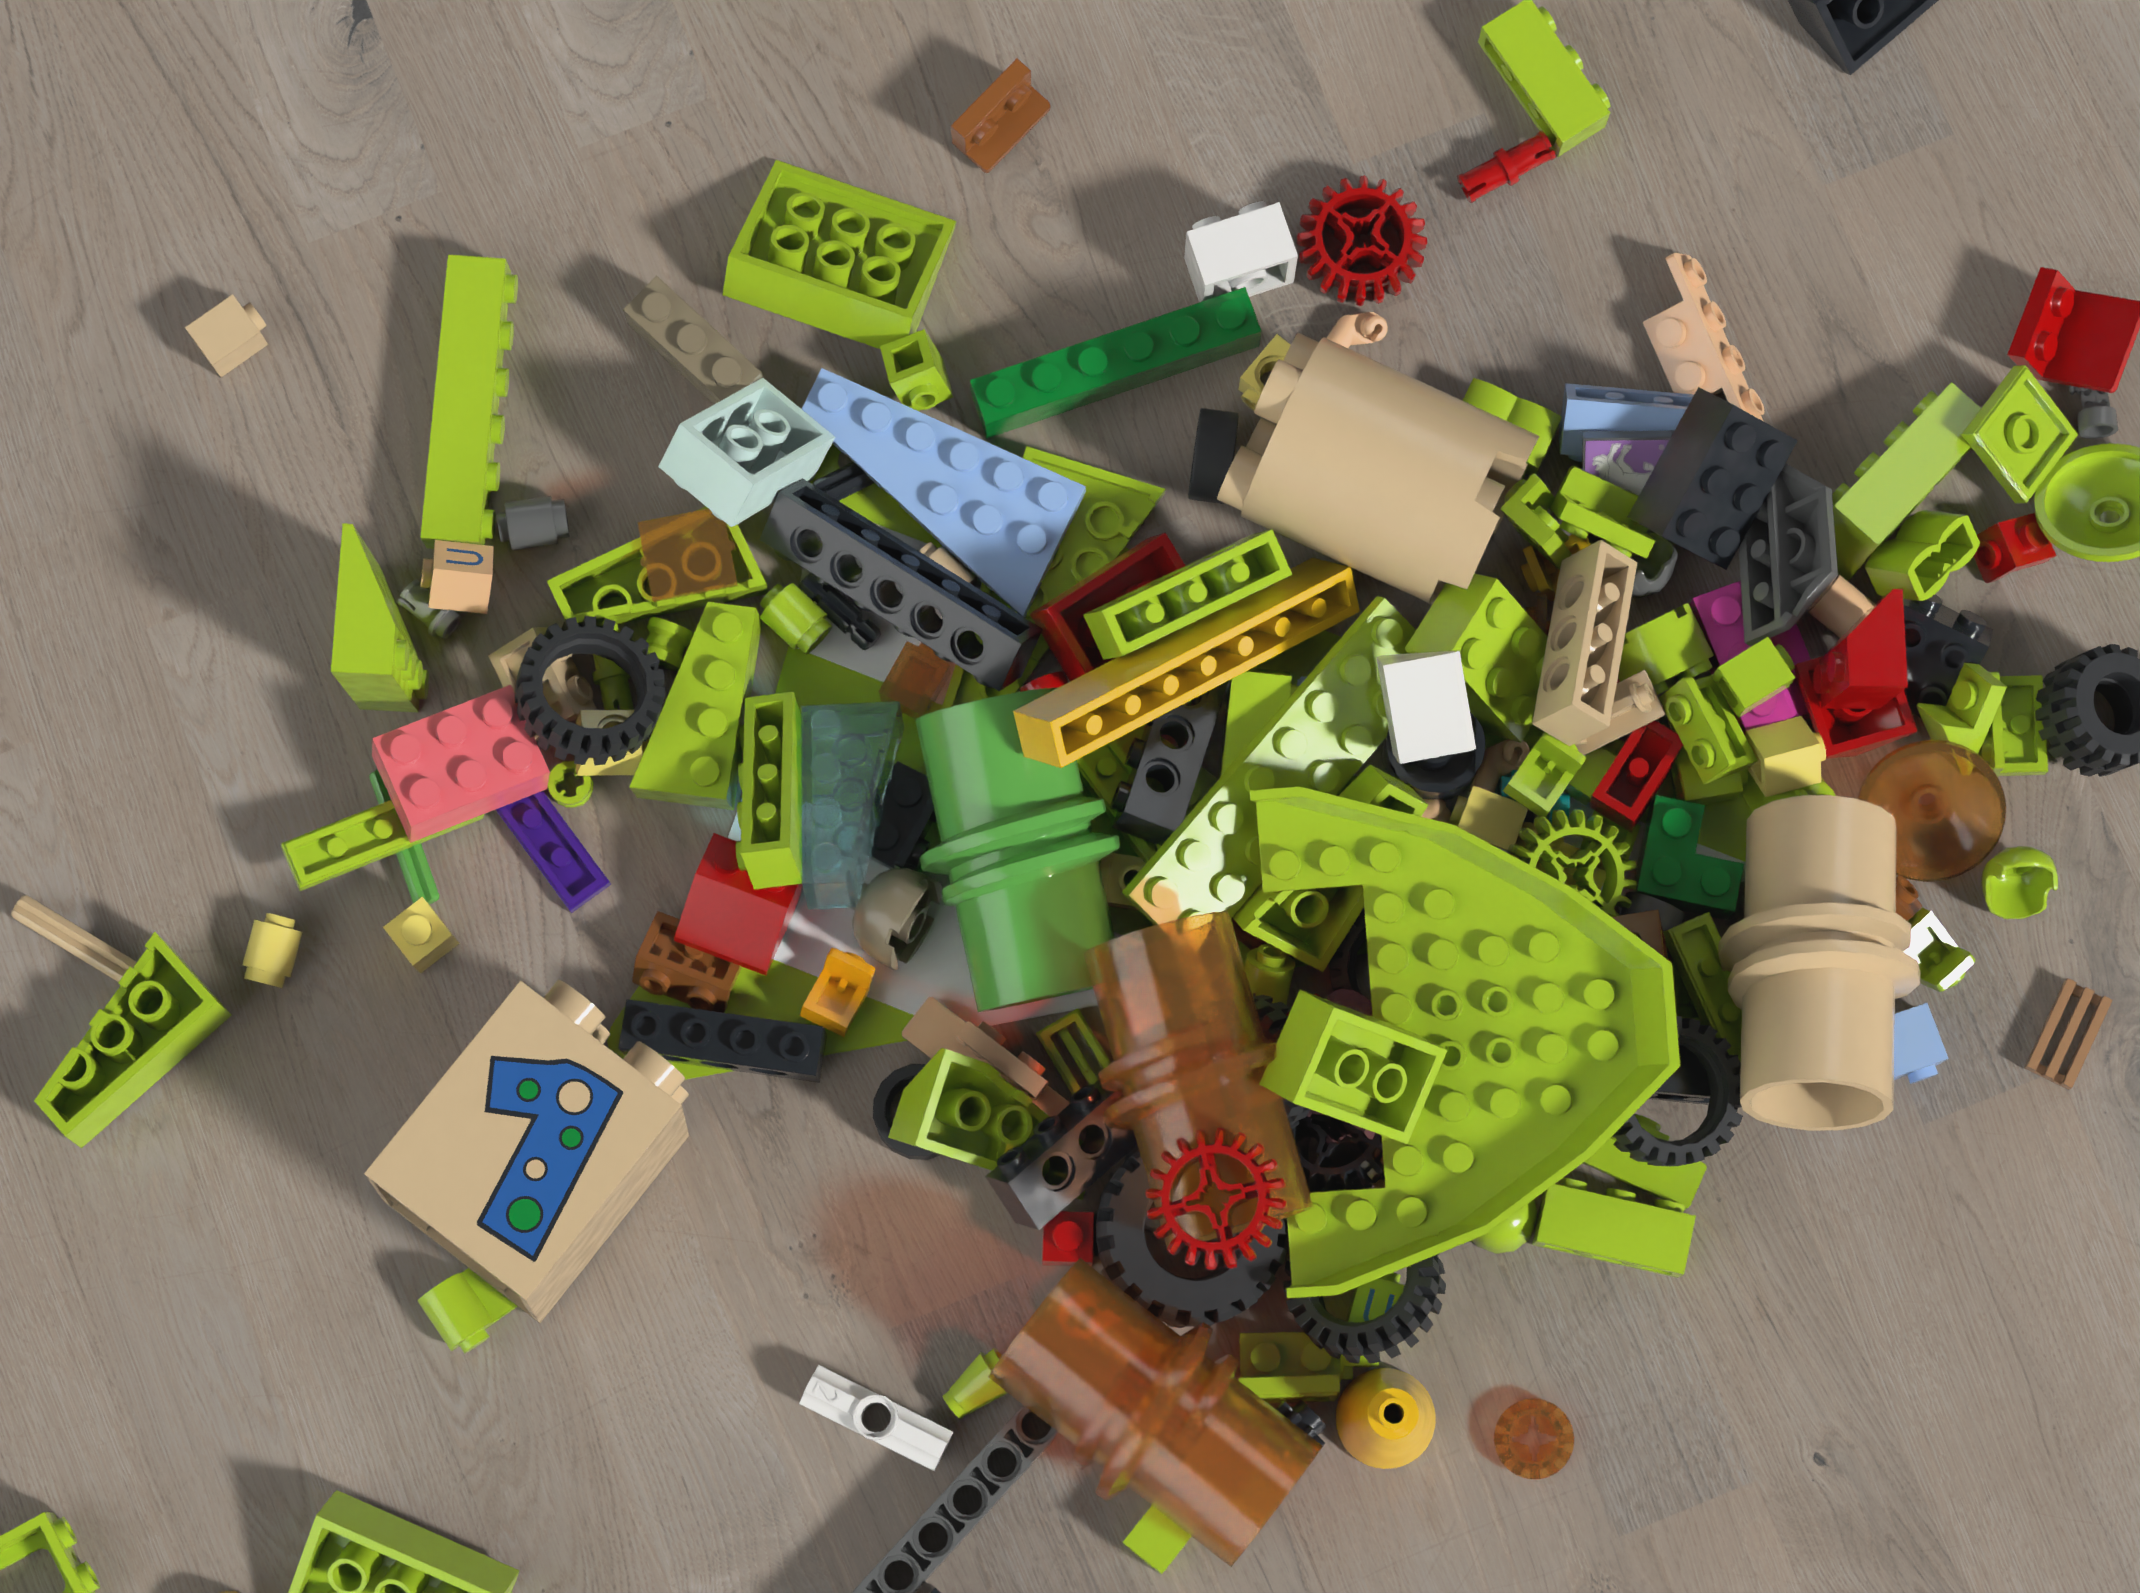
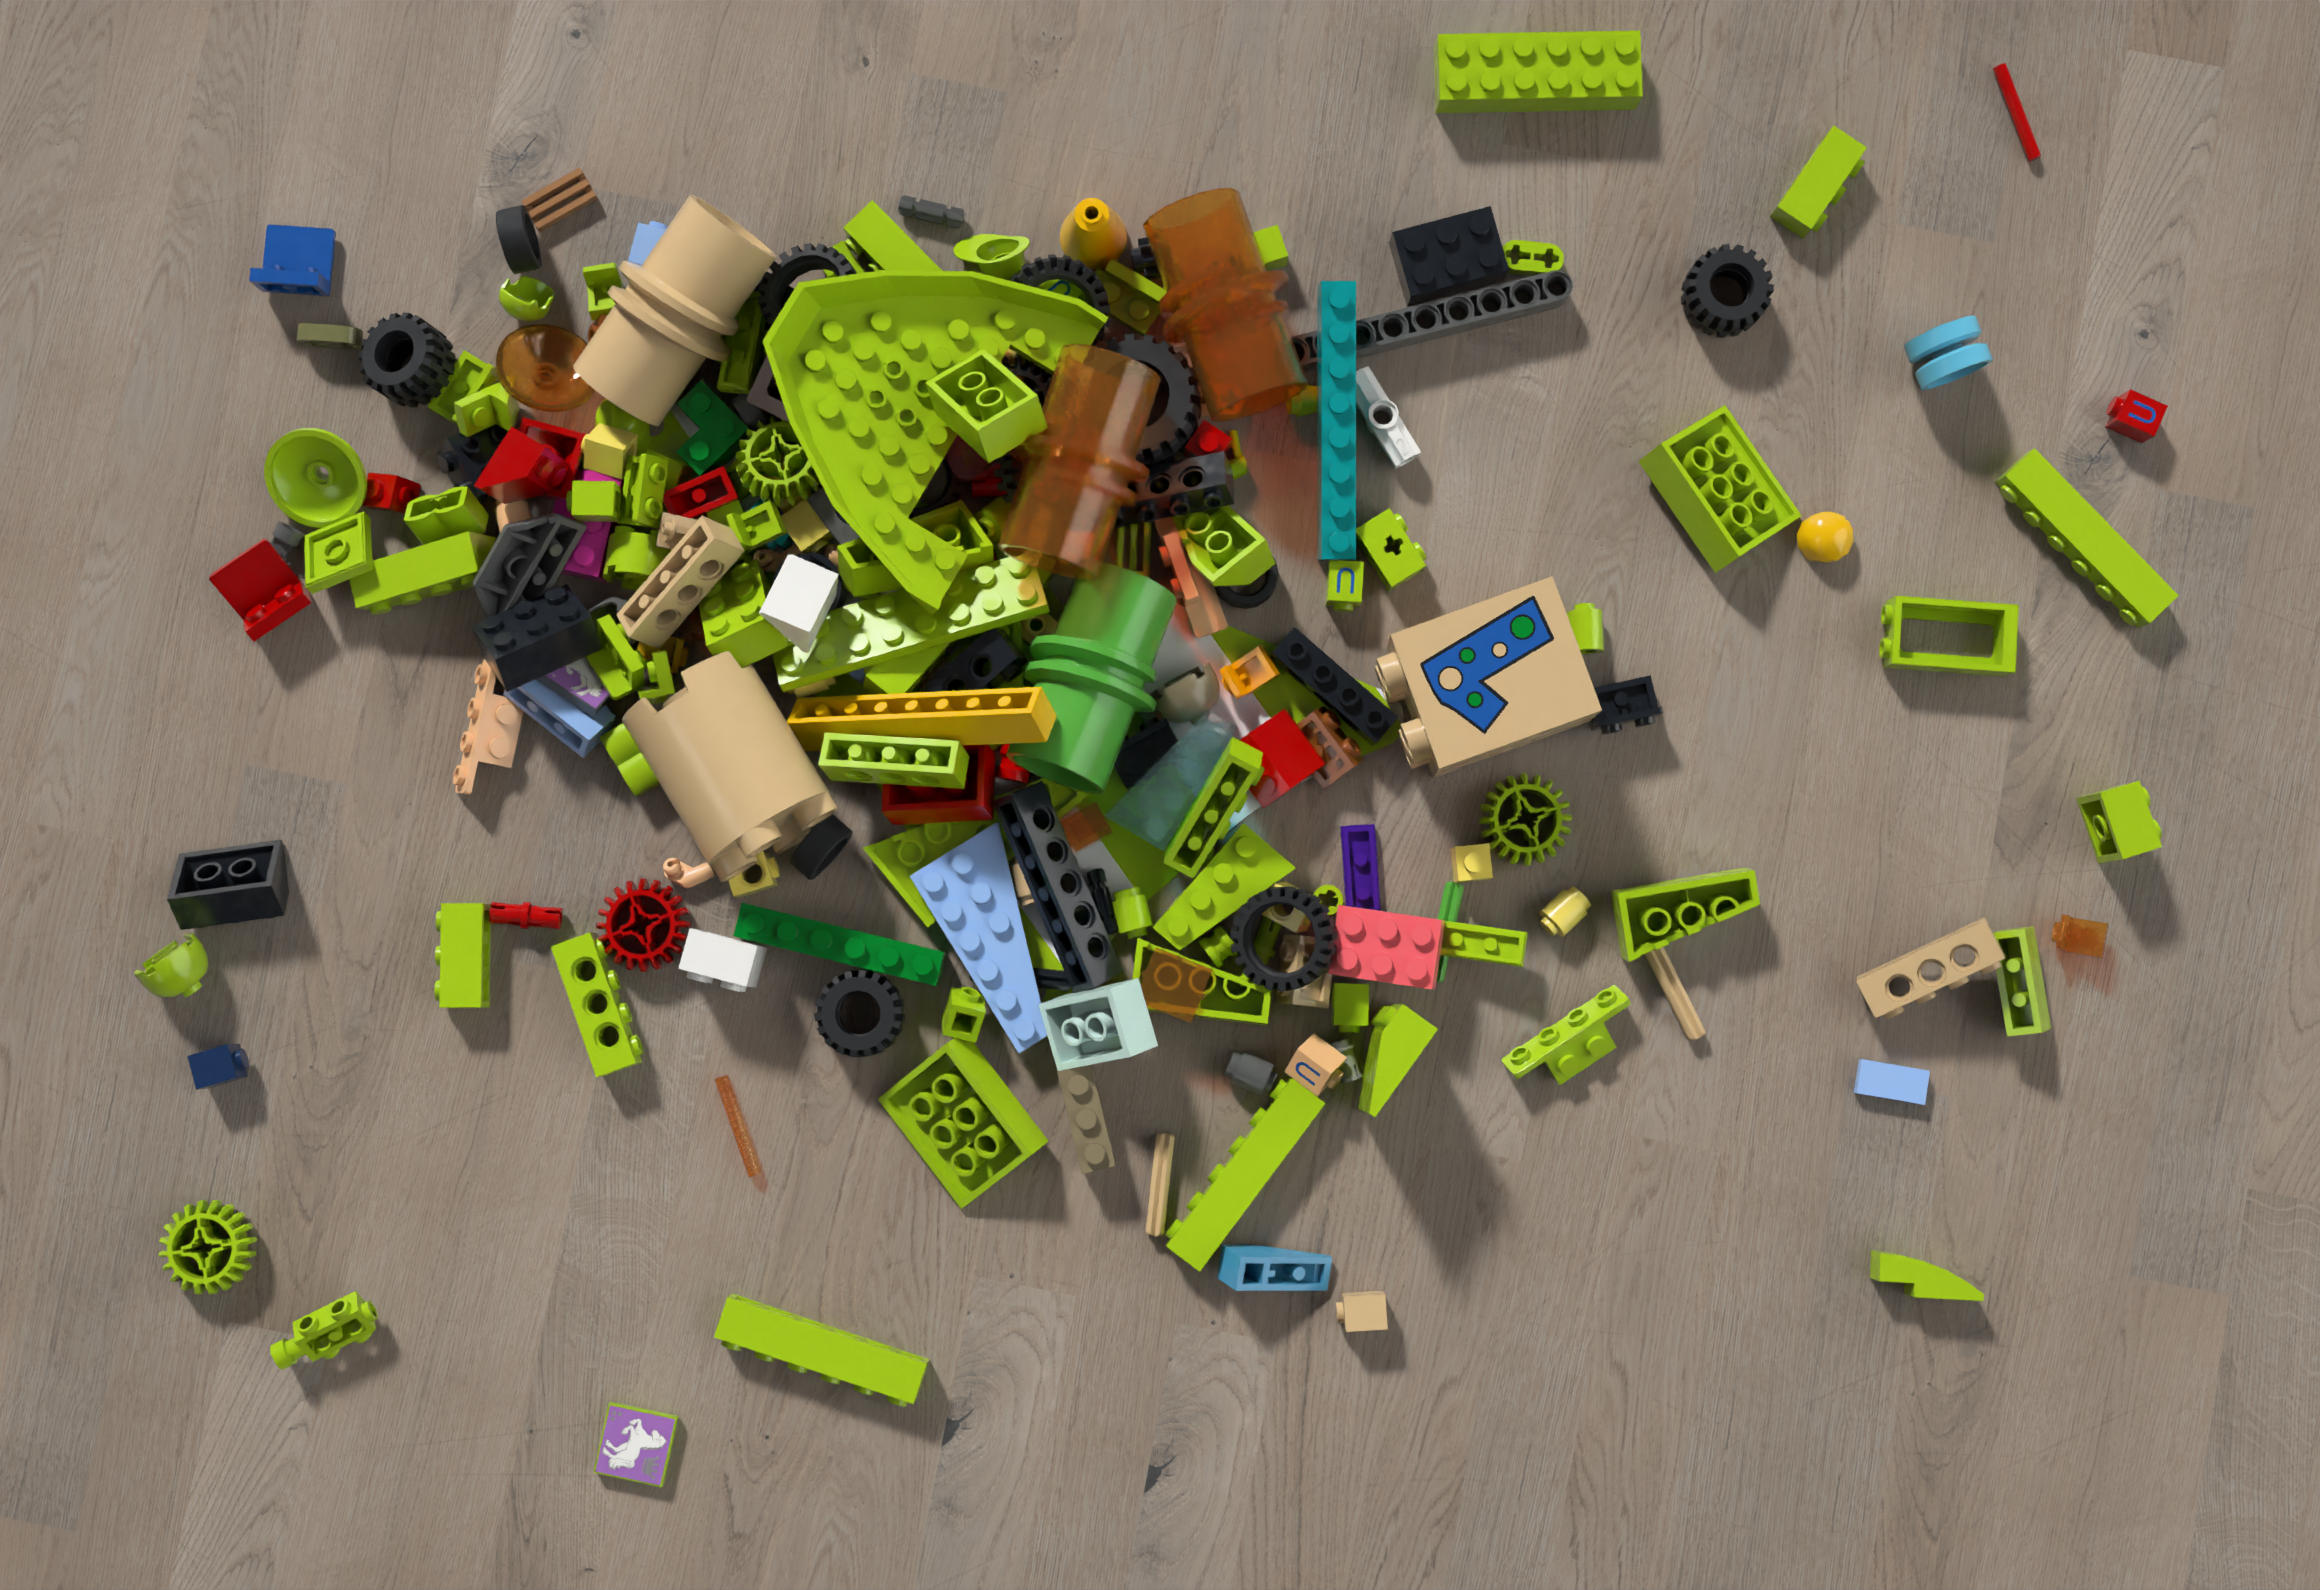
camera: 150 degrees left, 5 degrees up
(170, 802) = (1572, 1041): none -> lime bracket
(353, 1248) = (1626, 703): none -> black bracket
(365, 315) = (1272, 1269): none -> dark azure slope
(374, 1050) = (1520, 804): none -> lime gear
(461, 670) = (1350, 1006): none -> lime brick
(560, 331) = (1160, 1184): none -> tan axle
(744, 1234) = (1373, 539): none -> lime brick
(789, 1176) = (1344, 585): none -> lime brick
(927, 1366) = (1336, 420): none -> teal brick
(999, 117) = (809, 1142): dark orange bracket -> none
(1016, 1243) = (1239, 463): none -> lime hand
(1034, 260) = (830, 1020): none -> black tyre
(1097, 89) = (738, 1126): none -> clear orange bar
(1260, 1188) = (1133, 374): red gear -> none
(1305, 66) = (570, 958): none -> lime brick
(1492, 1310) = (994, 254): none -> lime piece
(1549, 1421) = (1014, 157): clear orange gear -> none
(1605, 1316) = (931, 211): none -> dark grey axle
(2077, 943) = (518, 239): none -> black tyre

